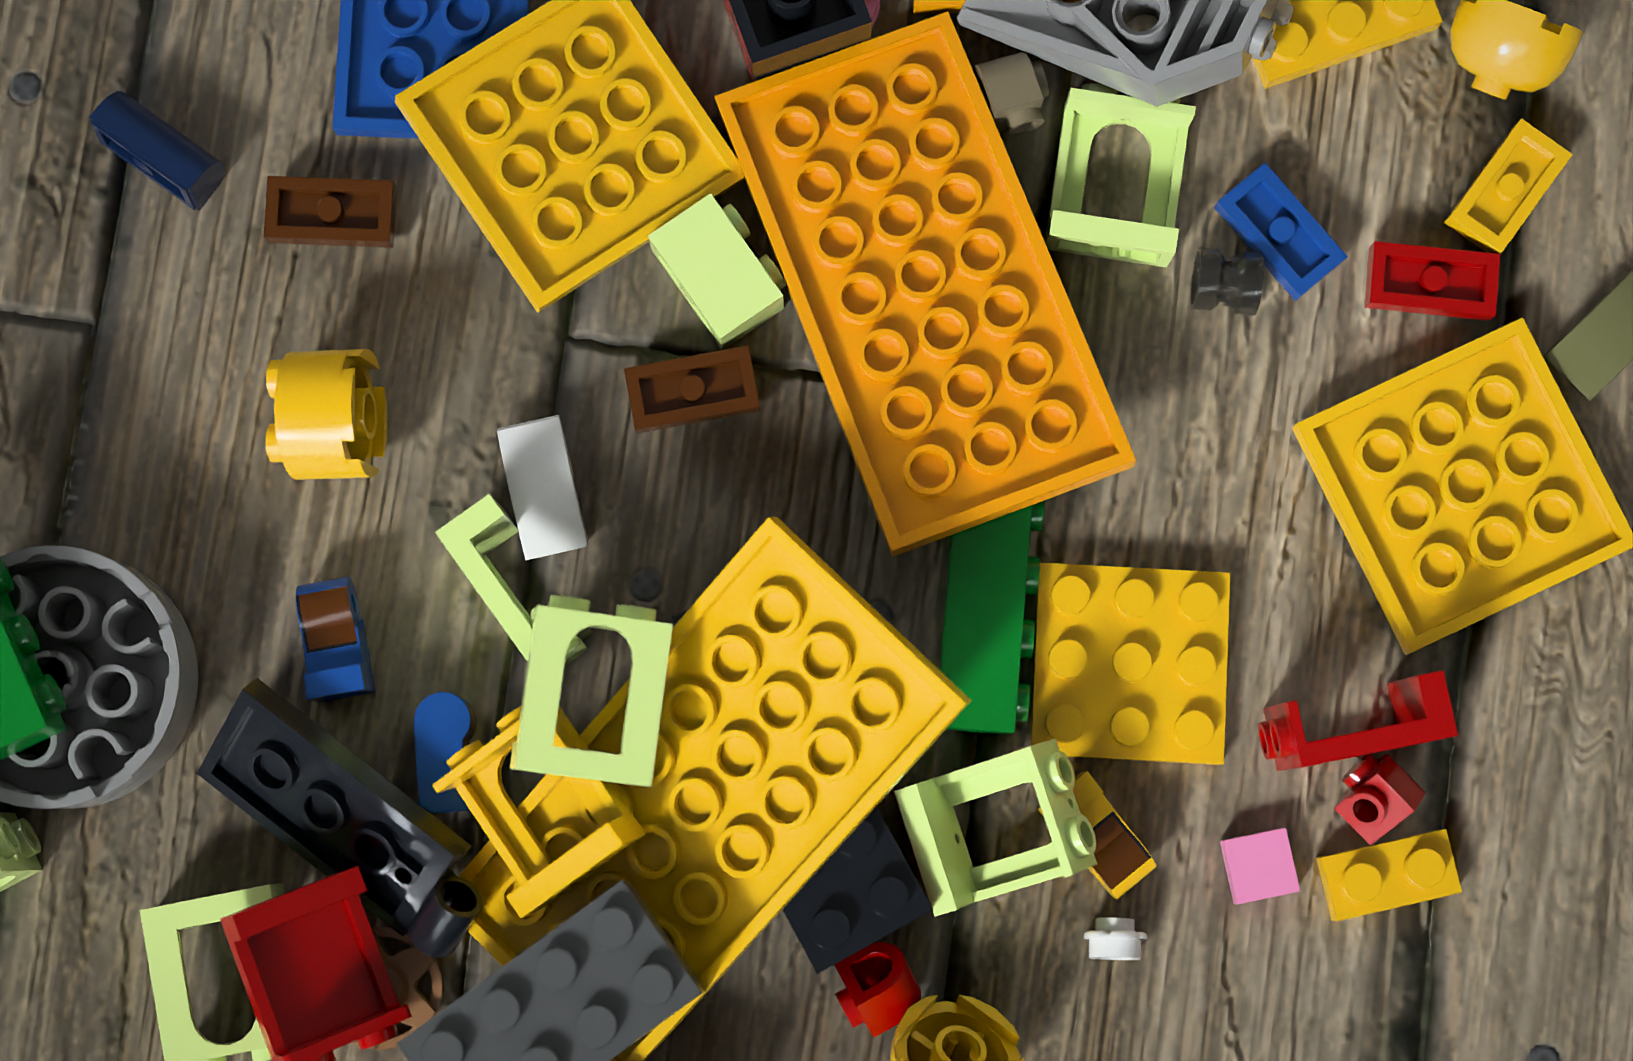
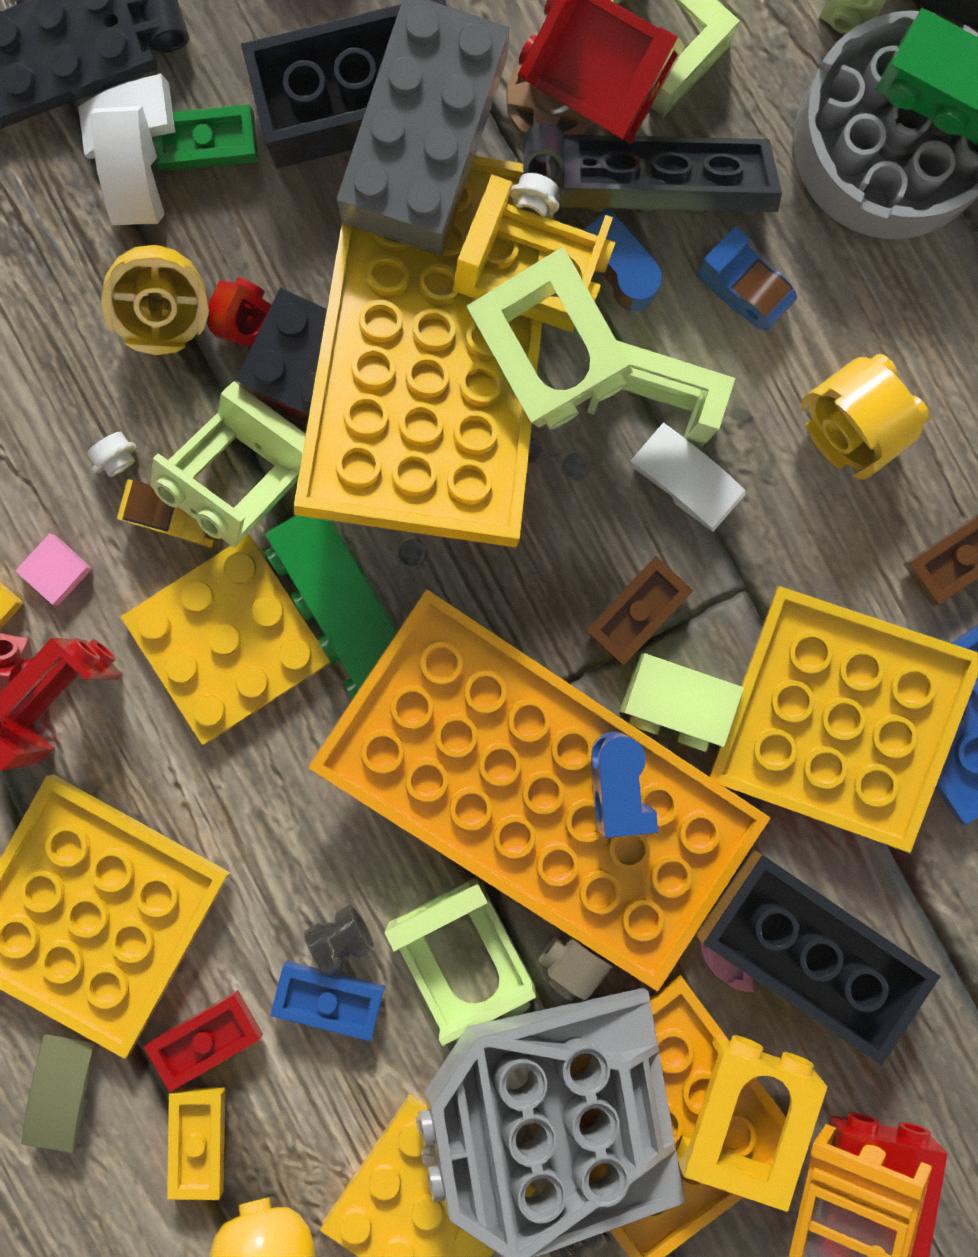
camera: 150 degrees right, 5 degrees up
(487, 876) = (536, 194): none -> white plate
(837, 239) = (616, 787): none -> blue leg

